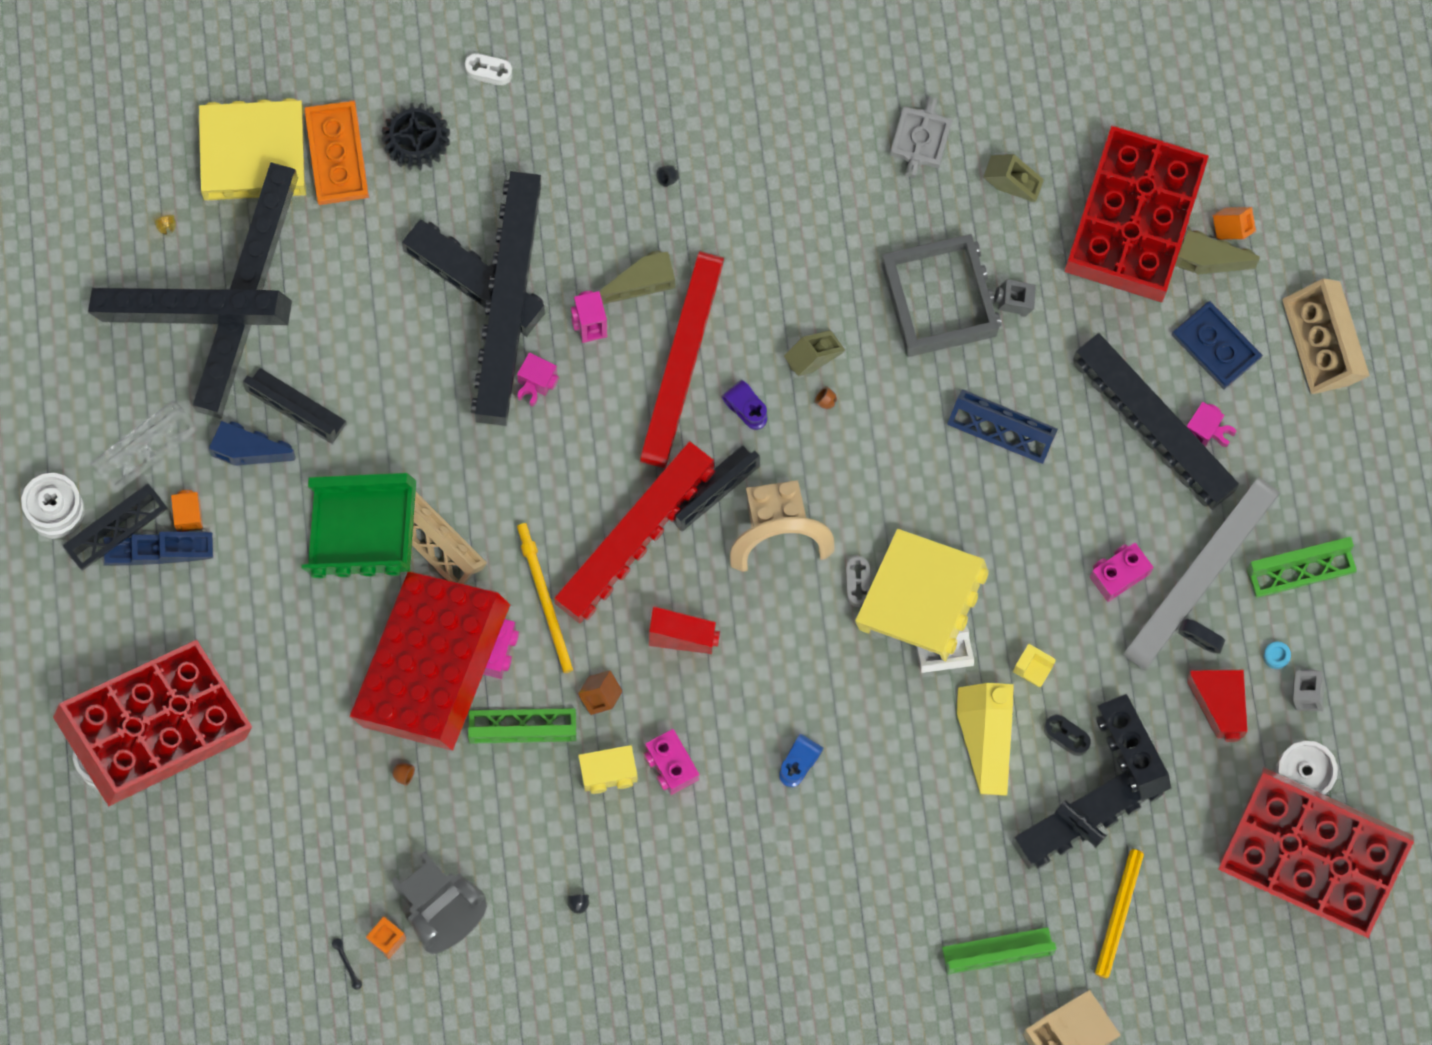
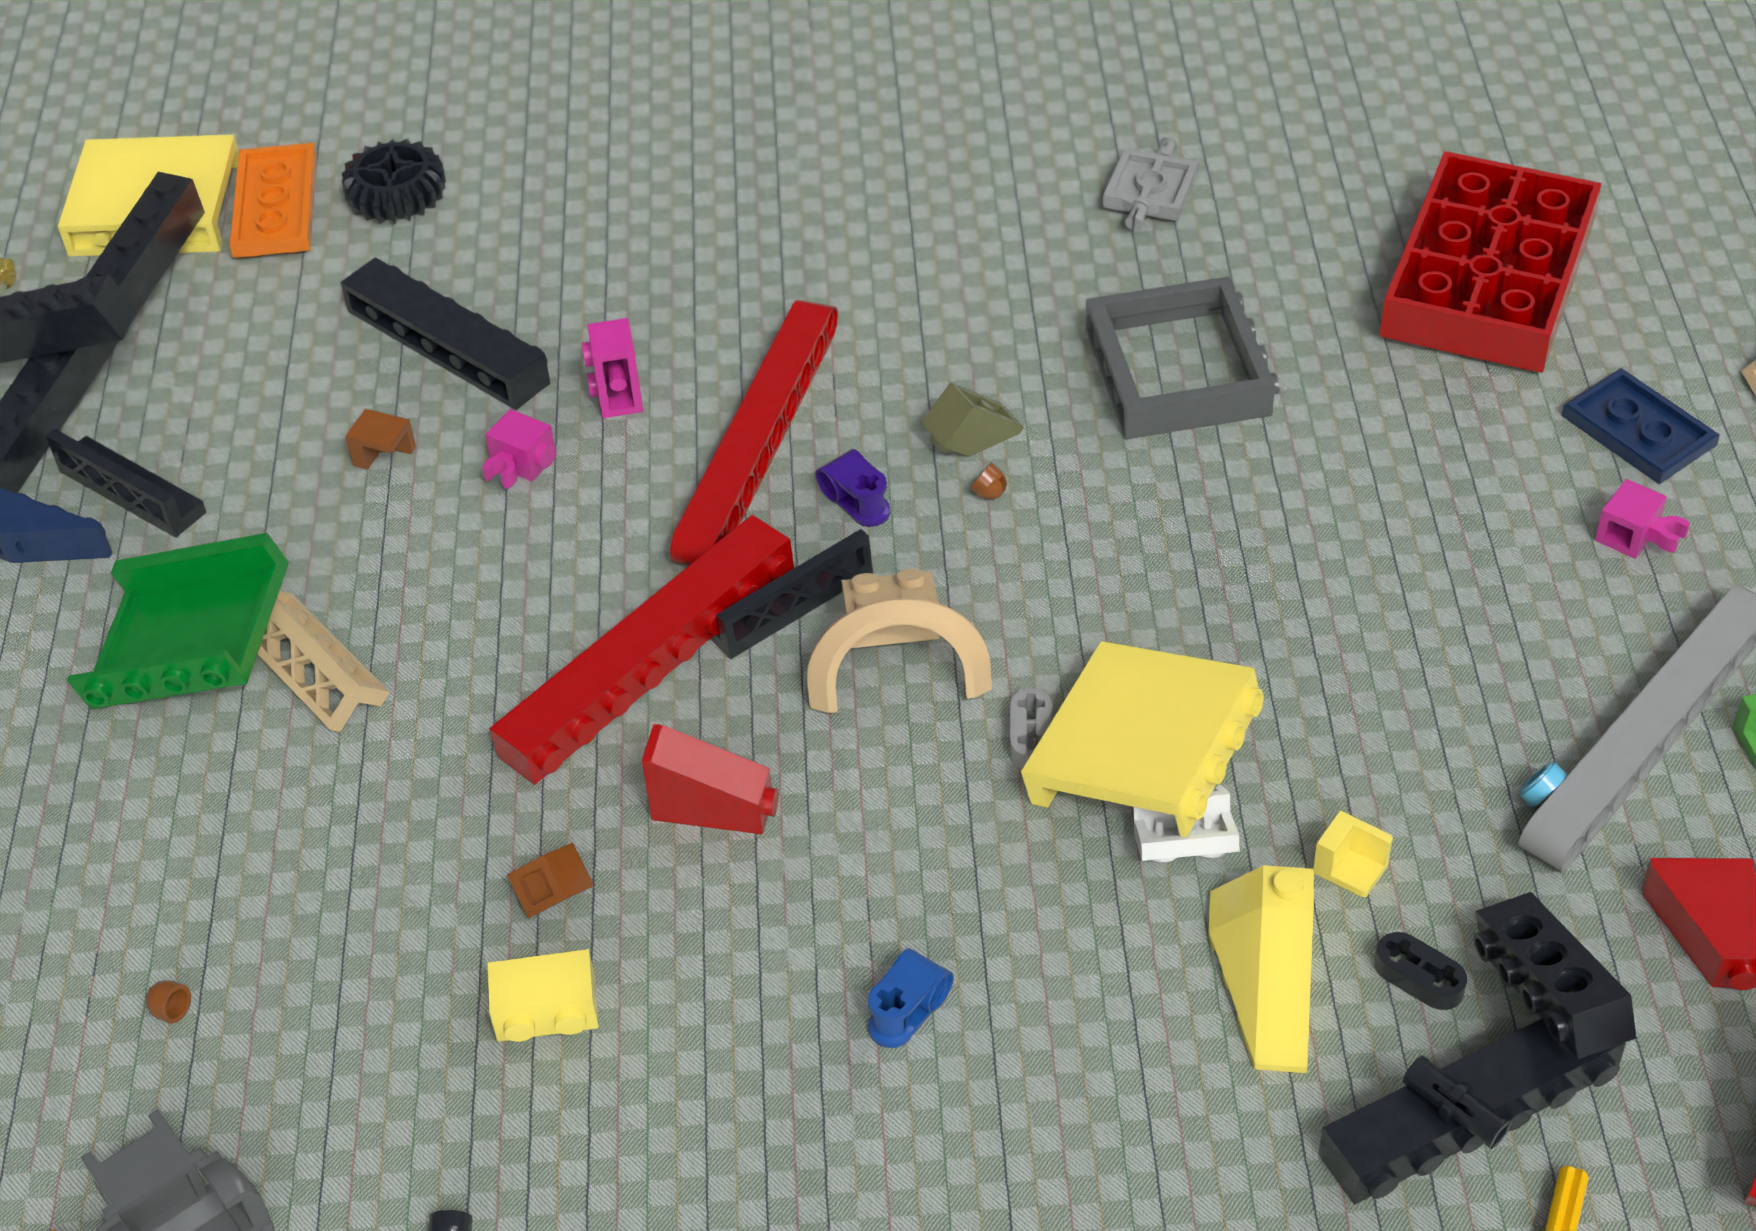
camera: 10 degrees right, 25 degrees down
(430, 660) = (246, 812): red brick -> none
(448, 370) = (378, 433): none -> dark orange panel
(488, 69) = (517, 118): white beam -> none
(500, 658) = (375, 805): dark pink brick -> none
(508, 298) = (481, 344): black brick -> none
(522, 732) = (400, 934): bright green fence -> none
(530, 551) = (466, 677): yellow bar -> none
(645, 277) = (703, 335): olive slope -> none
(665, 172) = (761, 224): black hinge -> none
(671, 762) = (665, 992): dark pink brick -> none
(1006, 418) = (1288, 505): dark blue fence -> none
(1013, 177) = (1294, 223): olive slope -> none
(1021, 293) = (1302, 355): dark grey brick -> none
(1121, 571) = (1504, 717): dark pink brick -> none
(1138, 617) = (1542, 784): none -> medium azure tile
(1155, 421) = (1552, 517): black brick -> none
(1201, 636) = (1664, 811): black beam -> none
(1207, 255) = (1620, 313): olive slope -> none
(1234, 223) = (1650, 274): orange panel -> none

